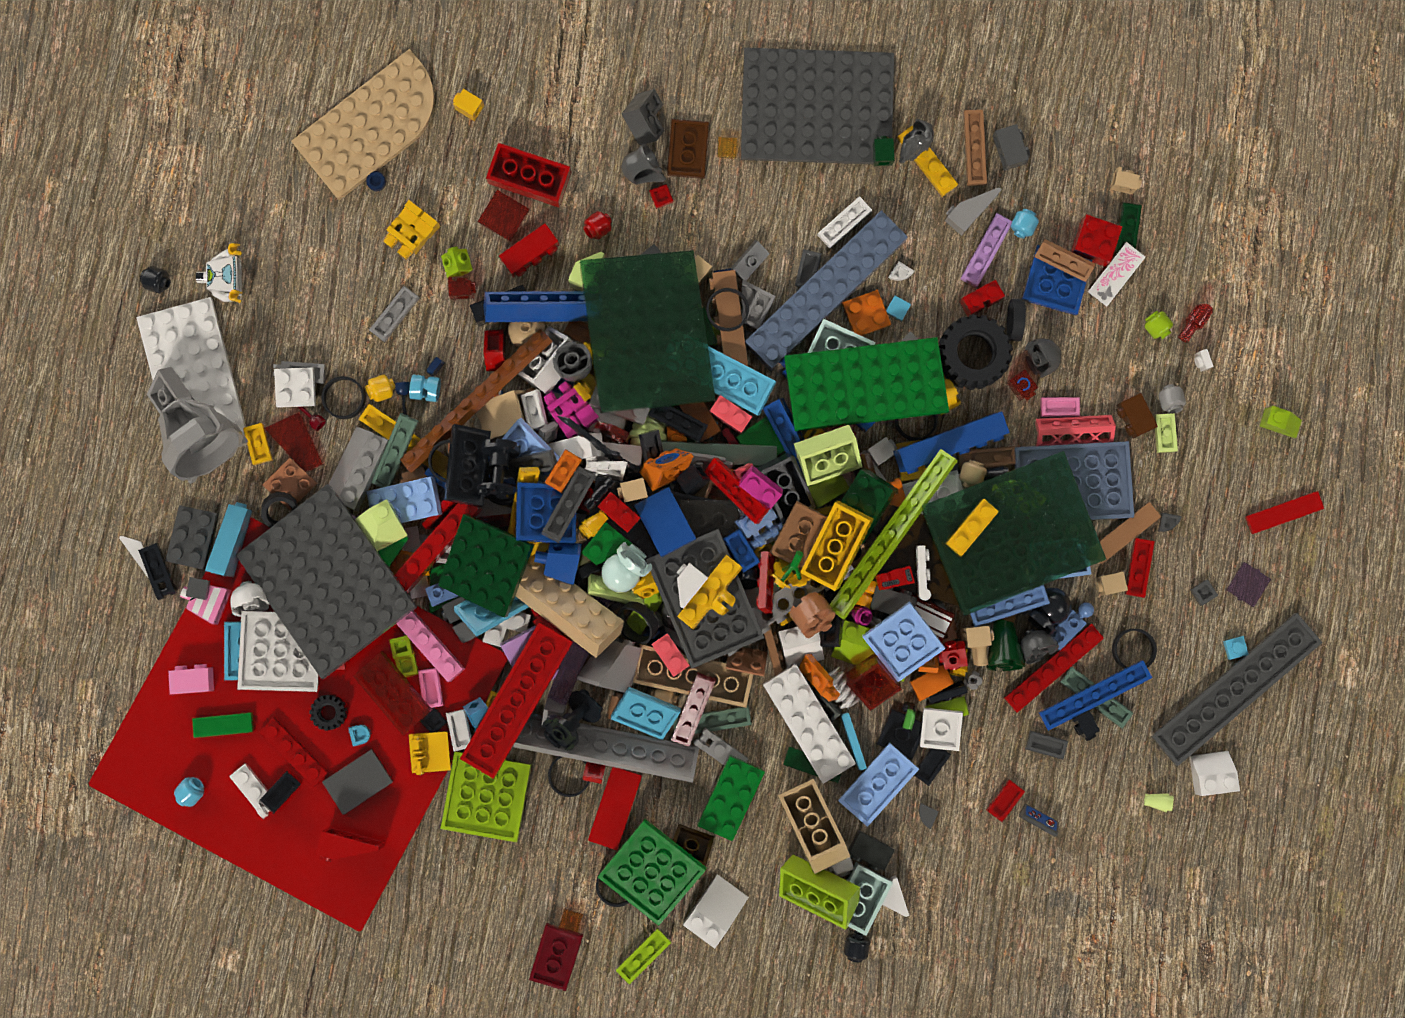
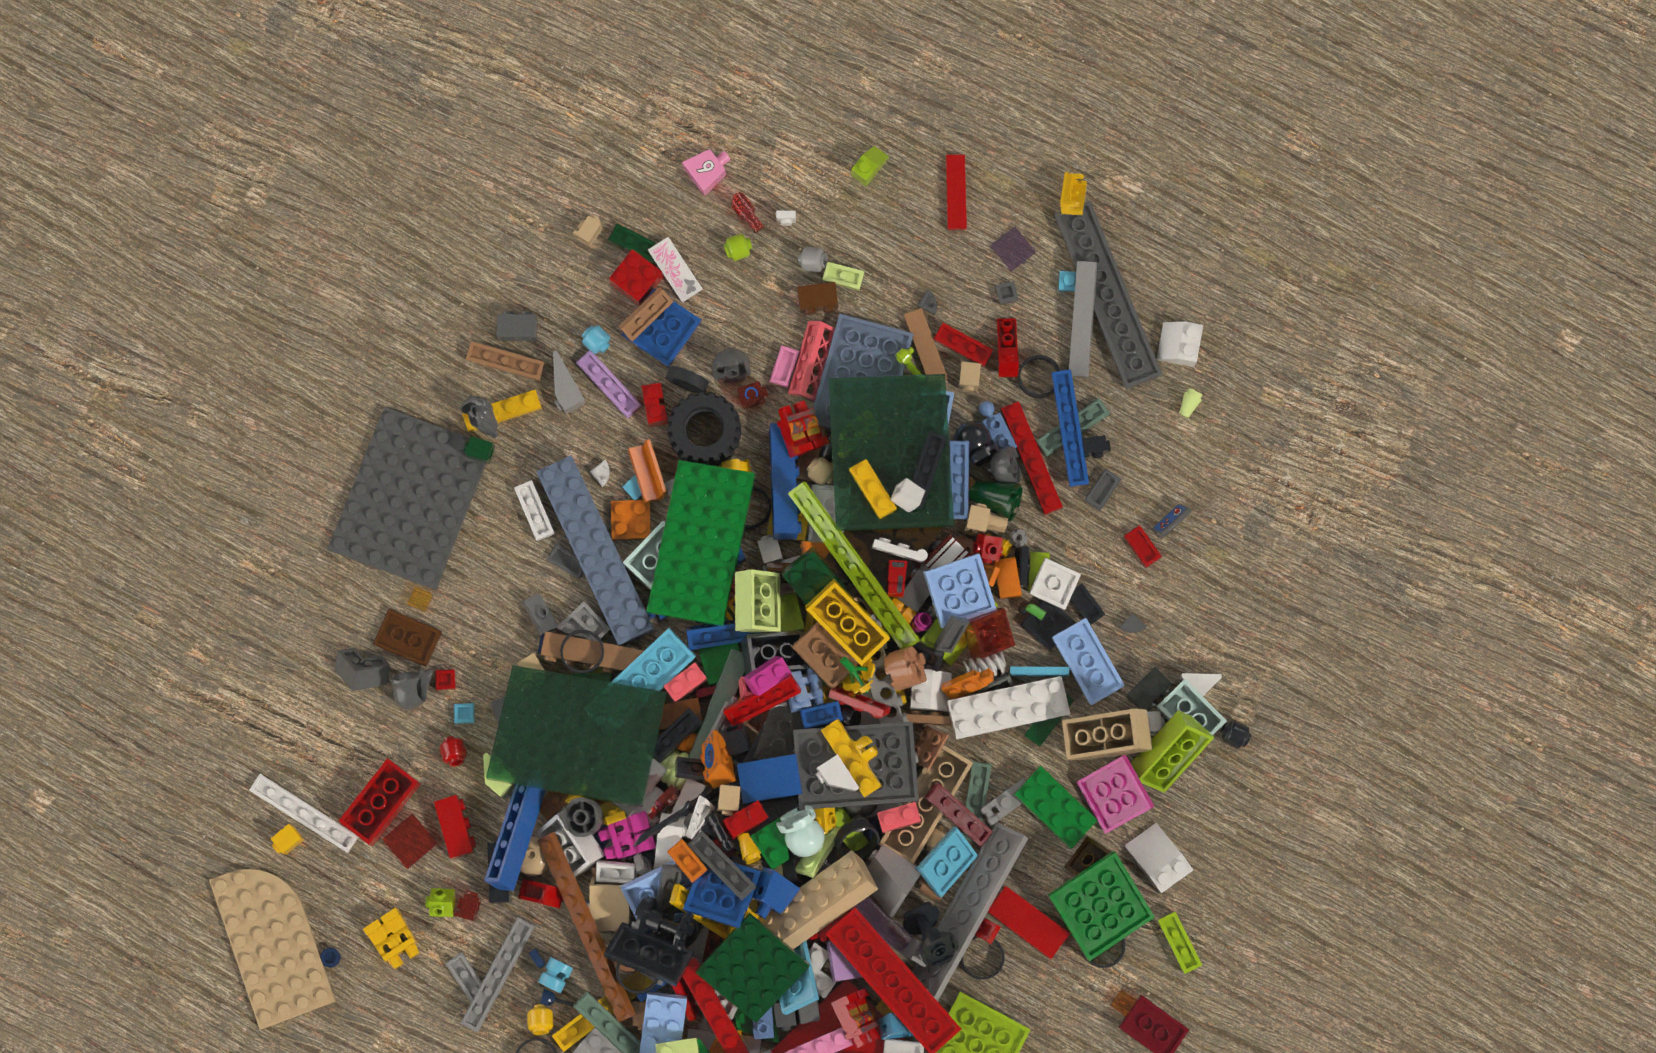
camera: 60 degrees left, 5 degrees down
(408, 335) = (497, 974): none -> light grey tile
(473, 677) = (857, 1018): none -> red hips
(497, 110) = (304, 813): none -> white tile
(636, 224) = (464, 713): none -> medium azure tile
(761, 851) = (1115, 794): none -> dark pink plate
(859, 647) = (951, 634): none -> dark grey tile
(915, 313) = (647, 472): none -> orange panel
(977, 562) = (907, 495): none -> white panel
(1005, 441) = (800, 429): none -> red hips
(1007, 571) = (928, 463): none -> black tile
(1108, 516) = (904, 357): none -> lime piece
(1151, 610) = (1007, 347): none -> red slope
(1205, 673) = (1082, 318): none -> light grey tile
(1222, 270) = (706, 169): none -> bright pink torso
(1323, 624) = (1073, 194): none -> yellow hinge

